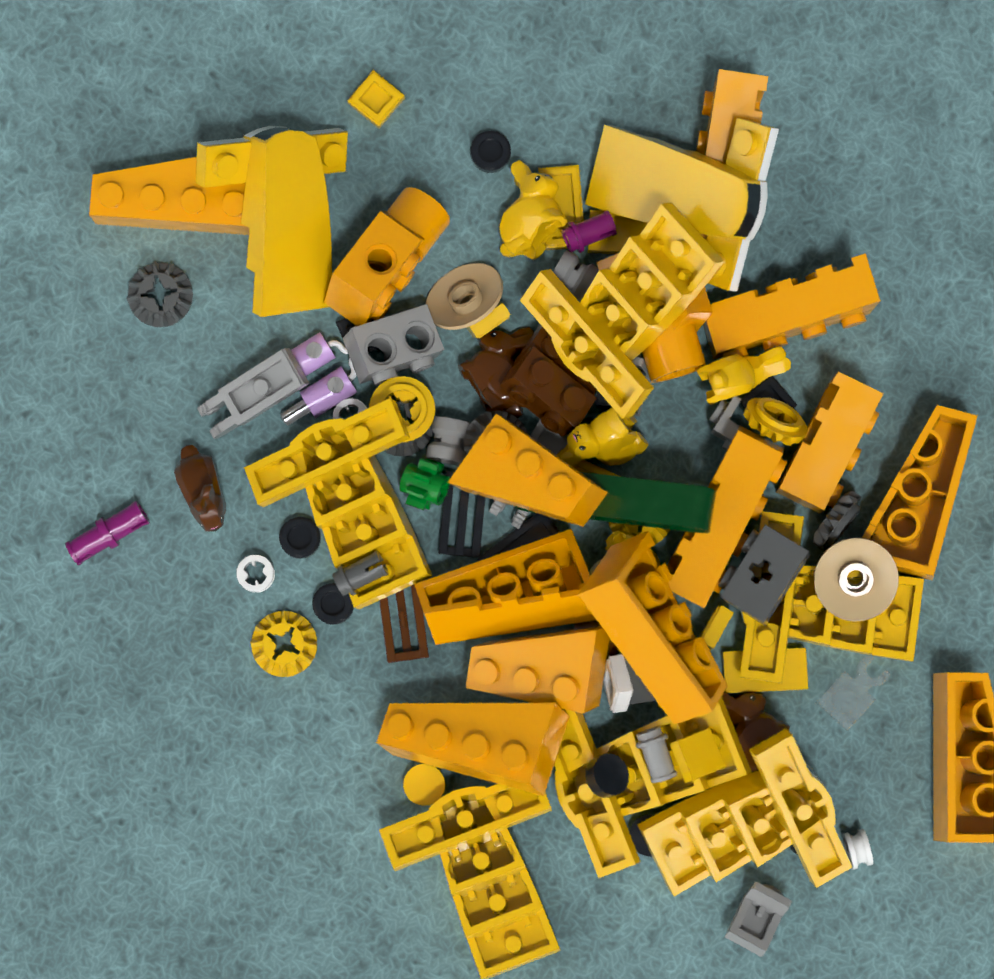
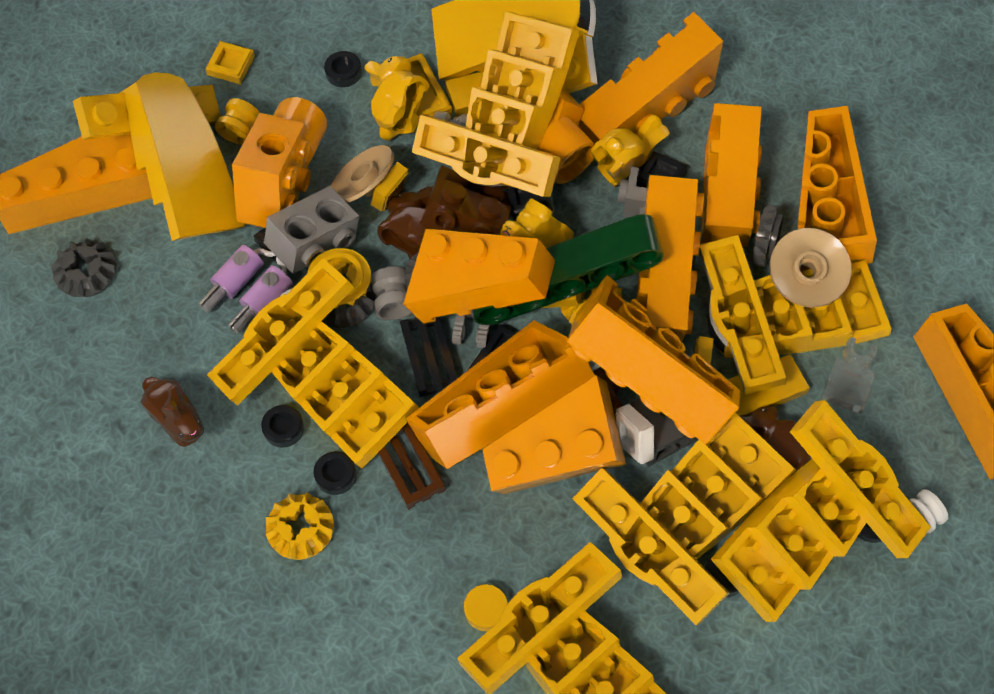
camera: 20 degrees left, 20 degrees down
(107, 533) = (91, 483): magenta pin -> none
(243, 576) = (244, 459): white bush -> none
(256, 391) = (195, 311): light grey hinge -> none
(357, 575) = (350, 426): dark grey pin -> none
(361, 183) = (237, 121): none -> yellow wheel
(424, 484) = (383, 334): green gear -> none
(482, 740) = (522, 532): light orange wedge -> none
(588, 231) = (445, 94): magenta pin -> none
(607, 775) = (662, 516): black tile -> none
(656, 754) = (700, 479): light grey pin -> none
(697, 755) = (740, 466): yellow tile -> none
(758, 918) = (866, 609): light grey bracket -> none
(775, 420) = (677, 169): yellow gear -> none
(785, 563) = (730, 308): dark grey brick -> none

